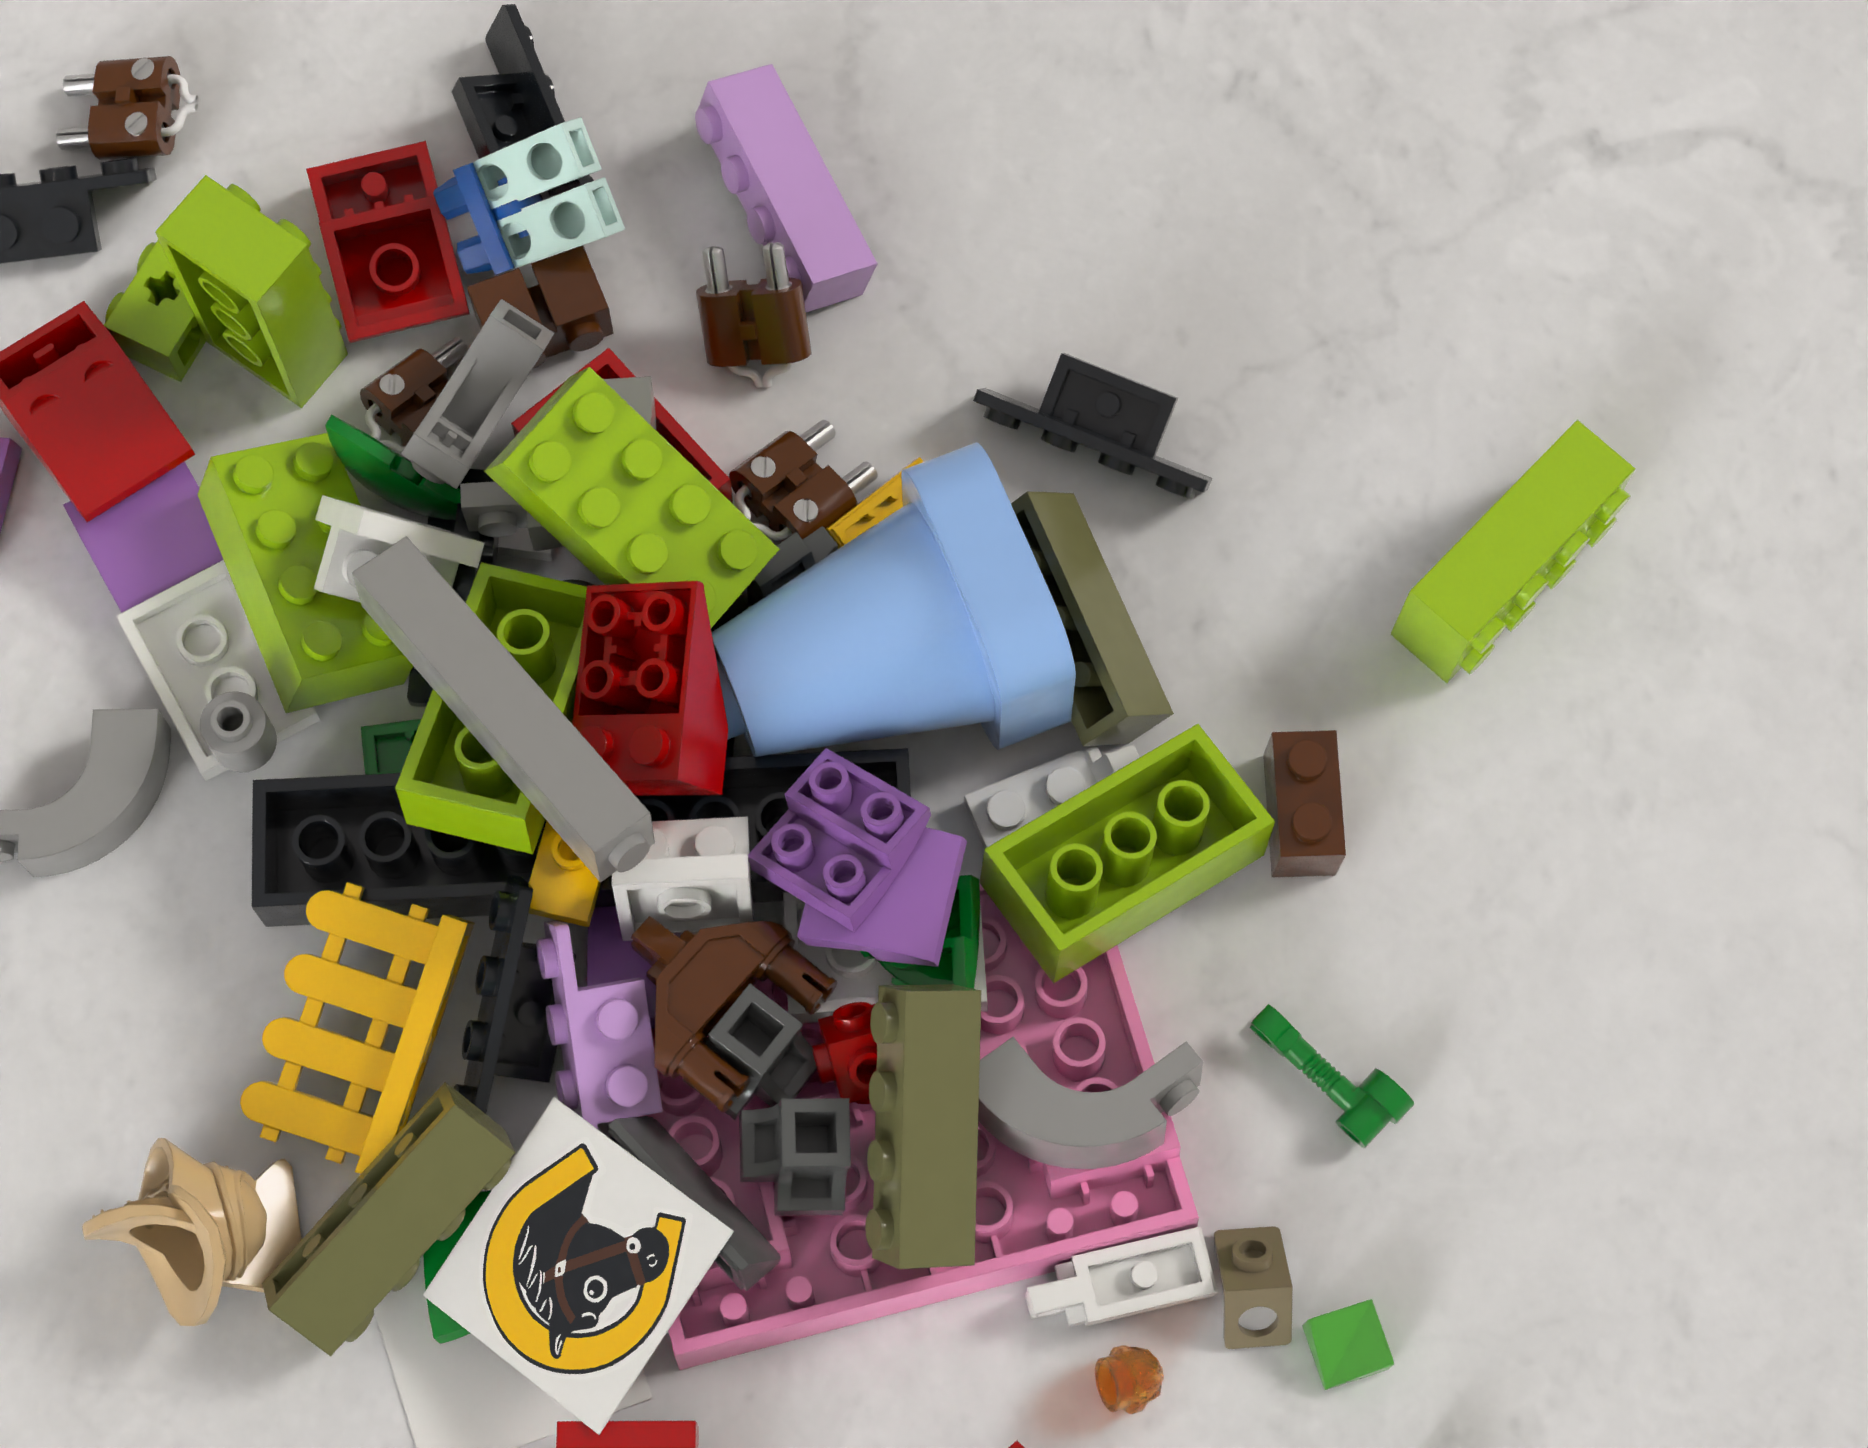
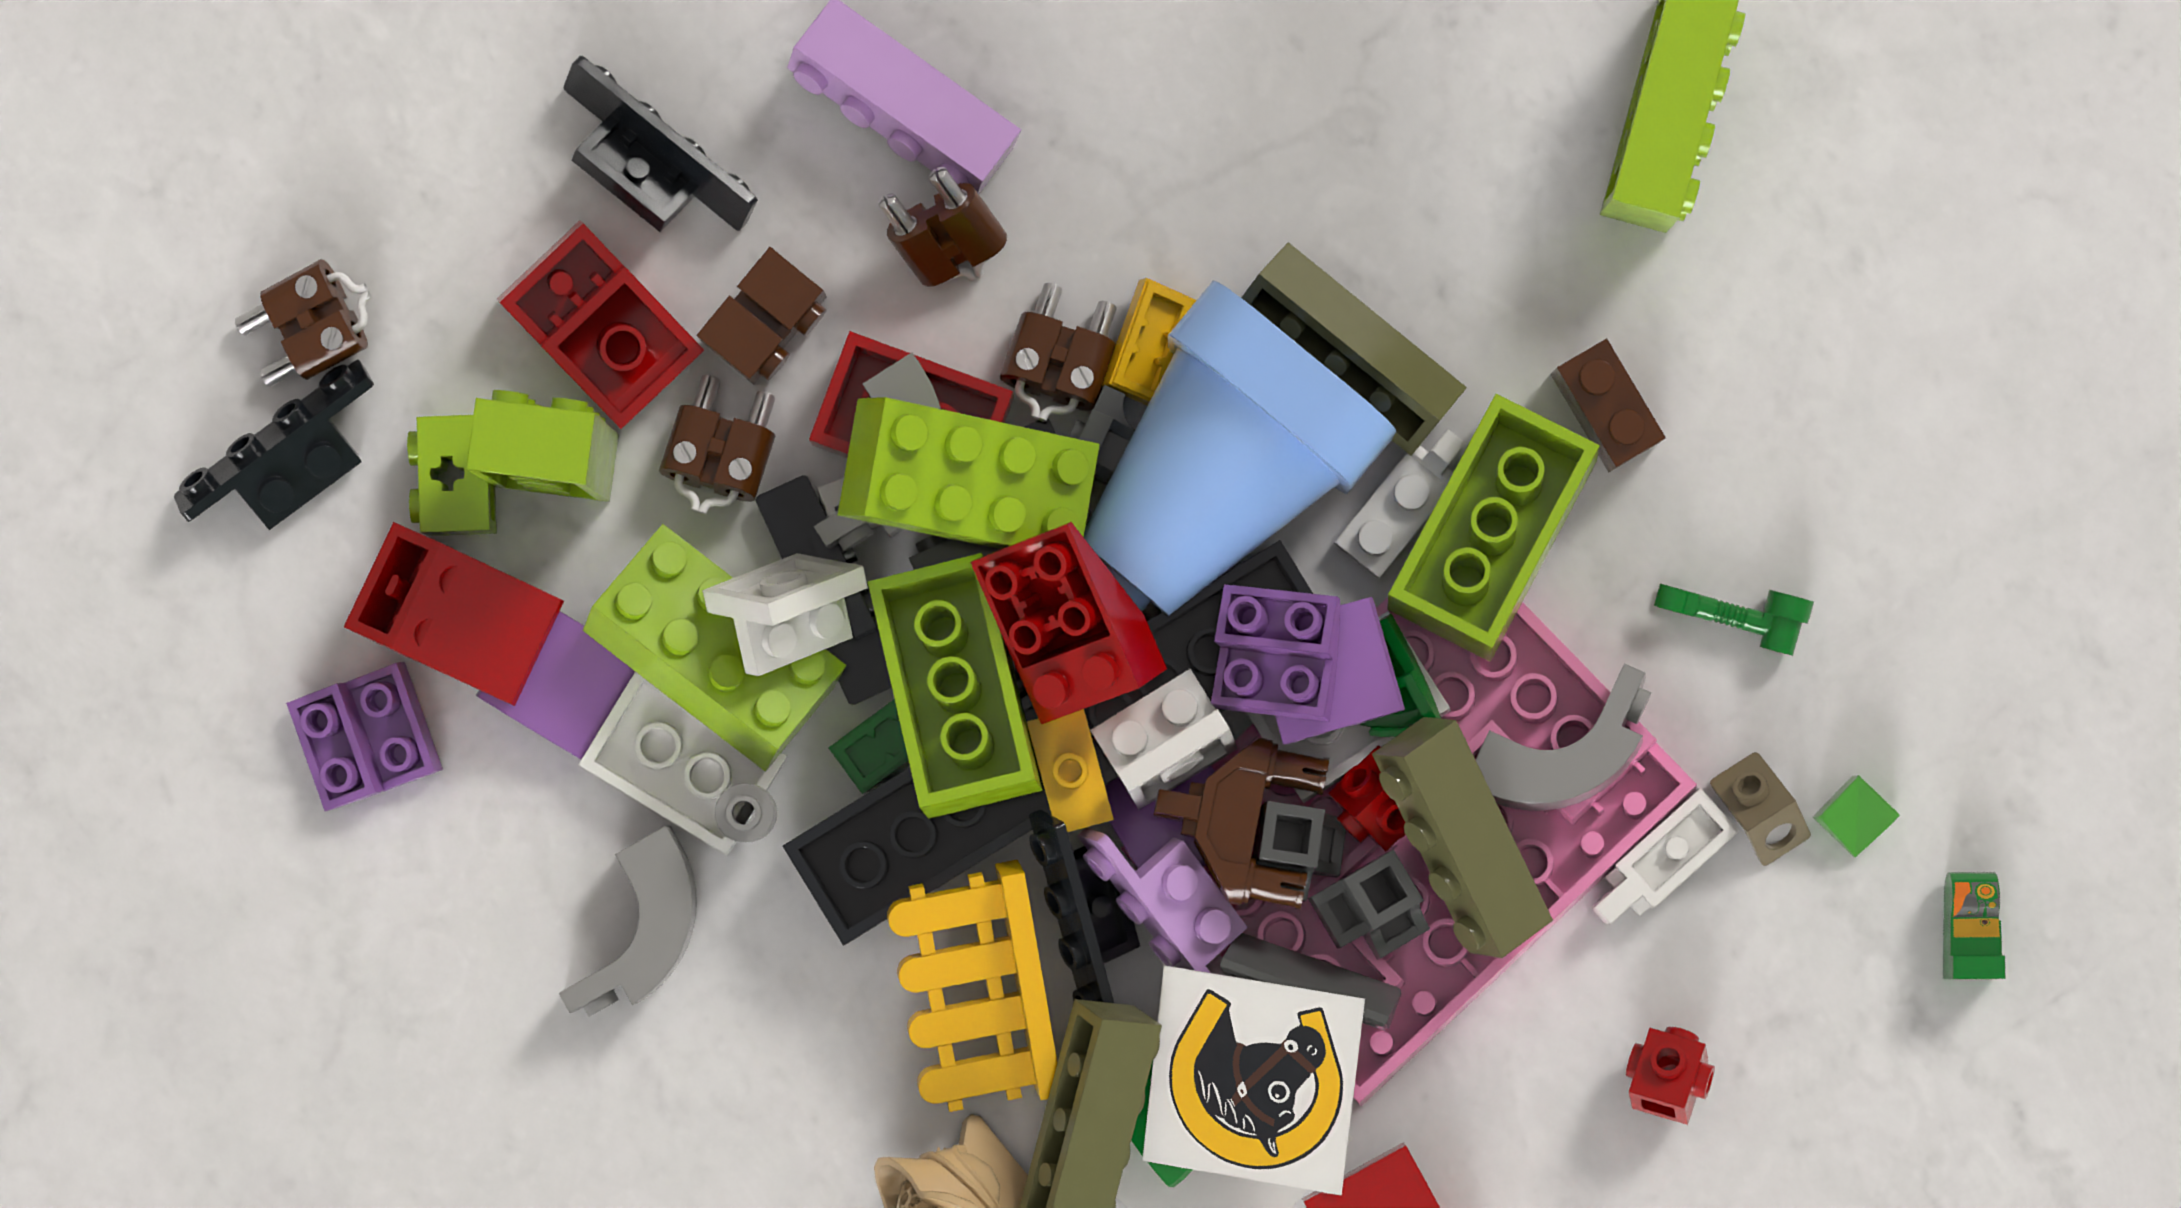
camera: 25 degrees left, 15 degrees up
(390, 473) = (732, 531): green brick -> none
(476, 395) = (766, 436): light grey arch -> none
(505, 710) = (970, 702): light grey brick -> none
(508, 205) = (708, 234): light aqua hips -> none
(1105, 414) = (1275, 159): black bracket -> none
(1128, 1379) = (1705, 932): clear orange plate -> none

